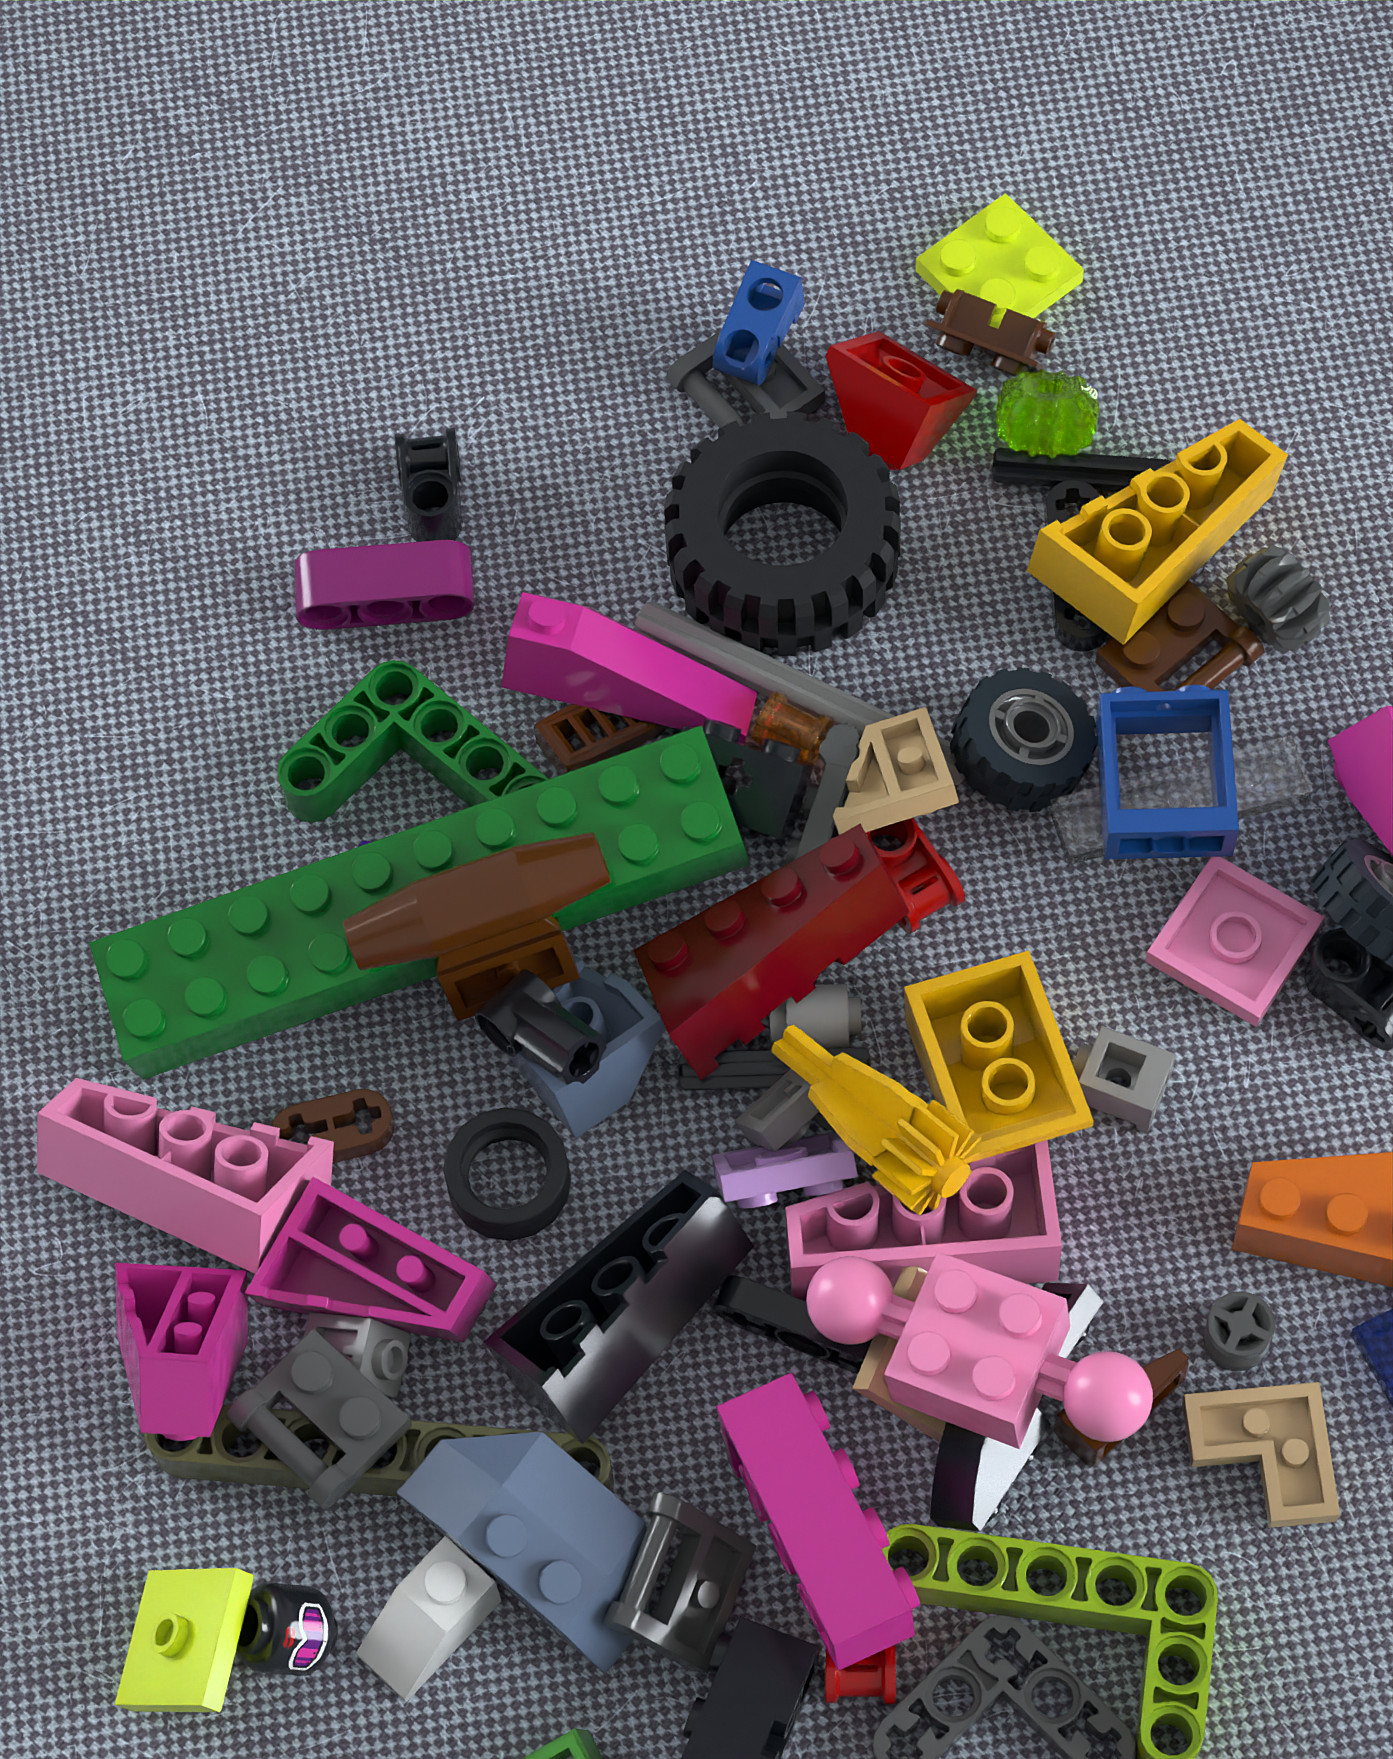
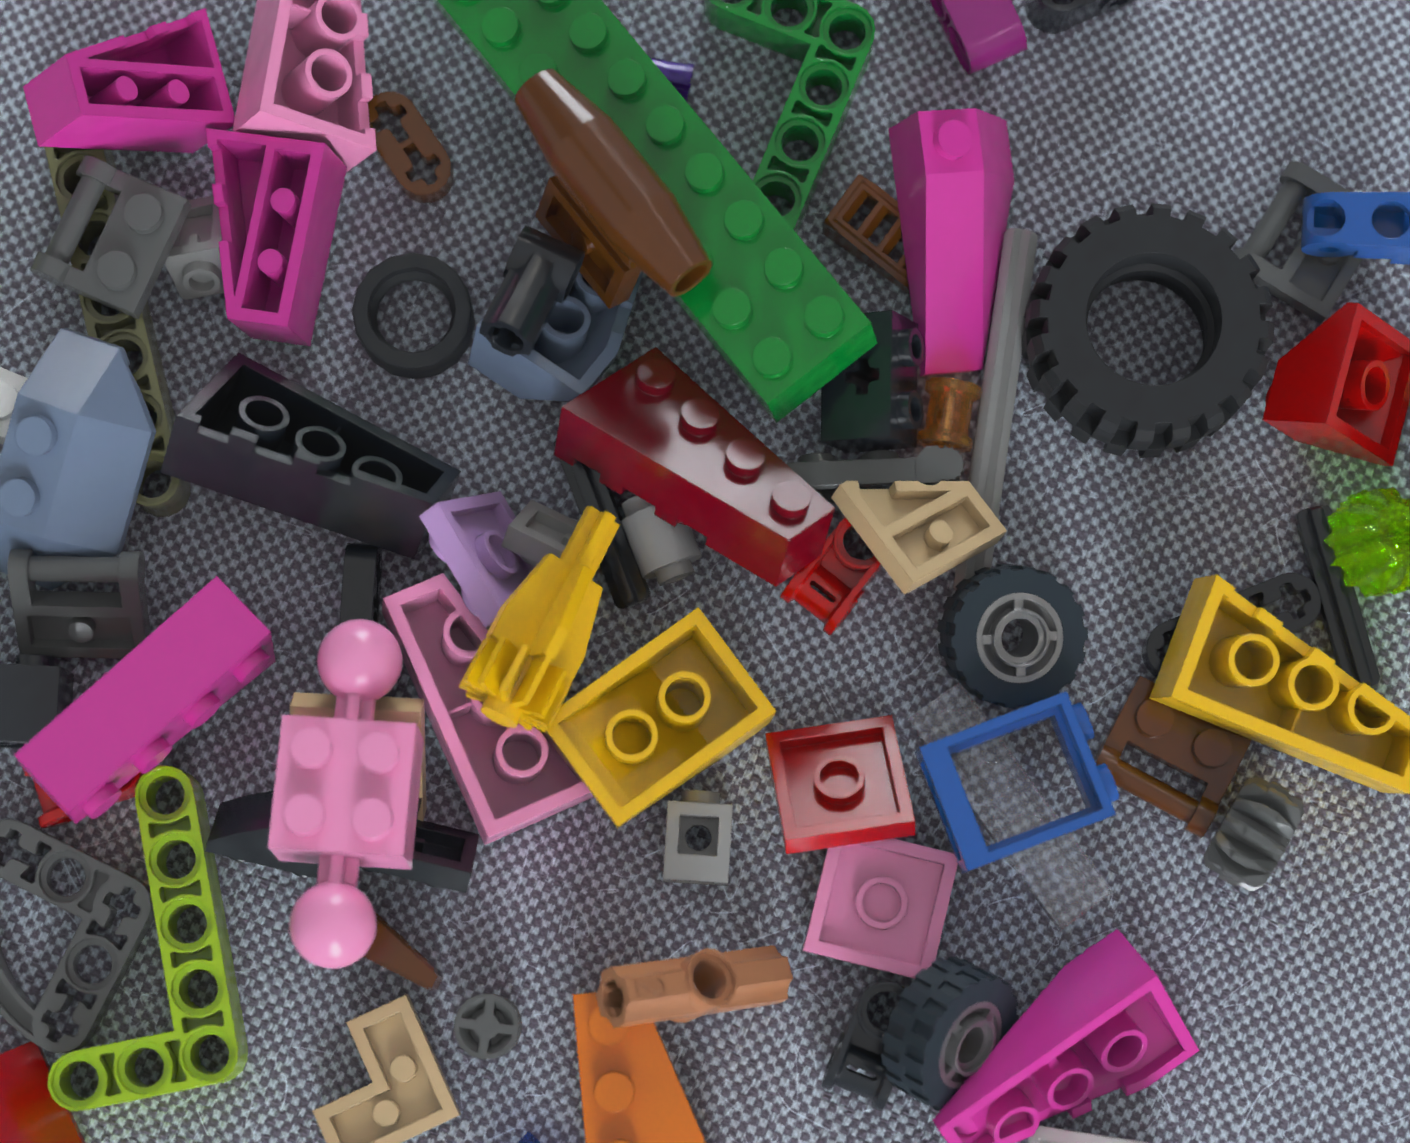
camera: 65 degrees right, 15 degrees up
(1112, 931) = (839, 784): none -> plate
(1266, 1112) = (667, 988): none -> nougat piece

